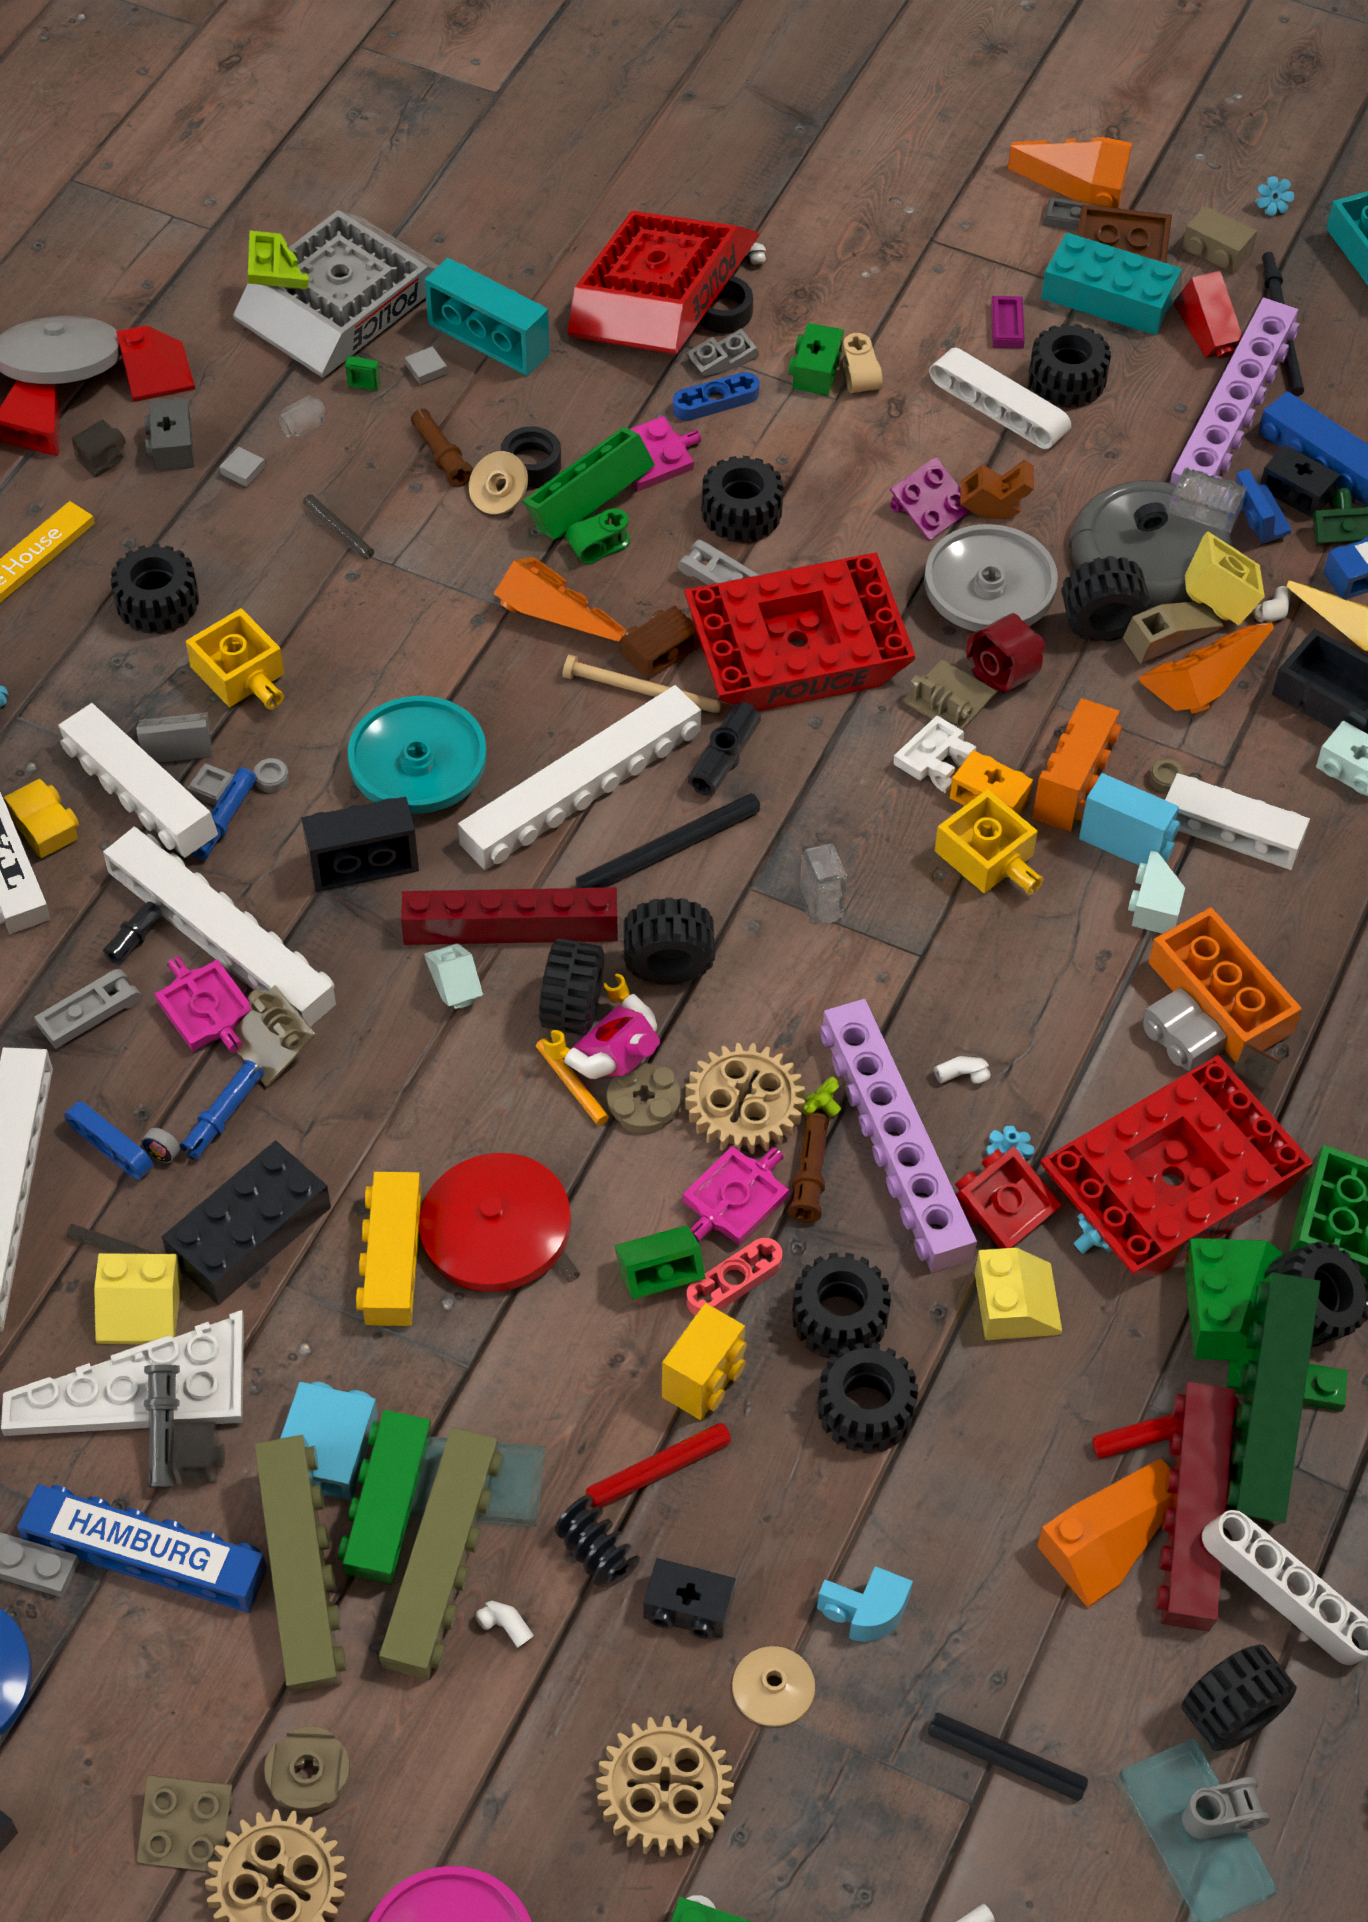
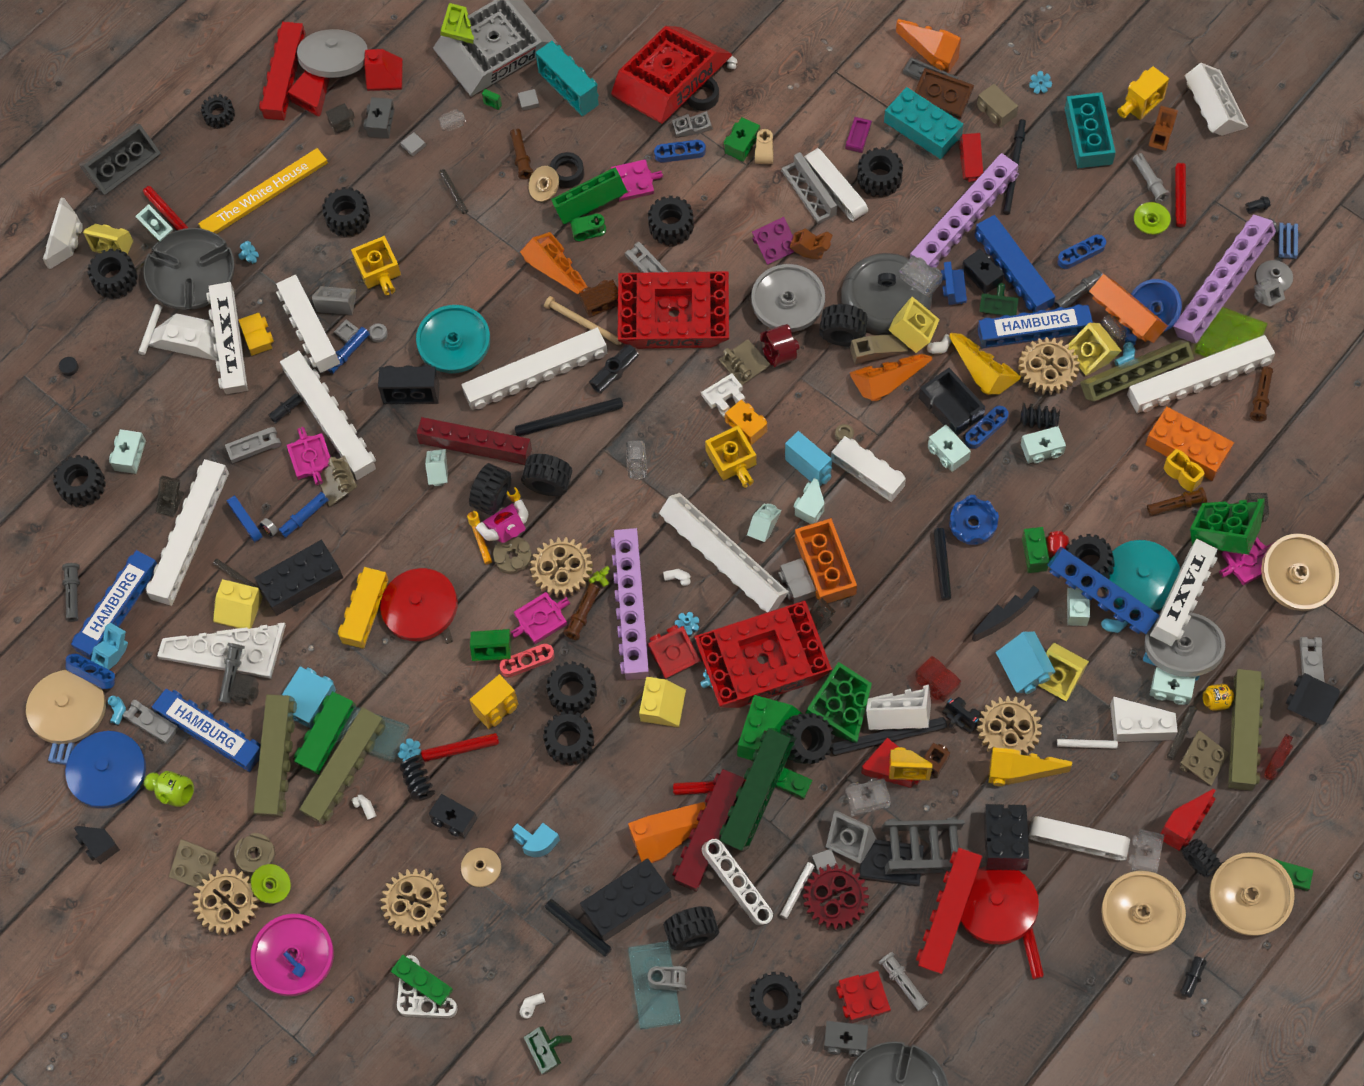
camera: 20 degrees right, 10 degrees up
(96, 1678) = (170, 788): none -> lime piece
(366, 1809) = (276, 878): none -> lime dish
(561, 1491) = (409, 749): none -> medium azure plant
(967, 409) = (814, 184): none -> light grey fence
(1036, 1009) = (723, 552): none -> white brick
(1075, 764) = (795, 416): orange wedge -> none
(1084, 1677) = (625, 900): none -> black brick
(1086, 944) = (763, 522): none -> light aqua slope

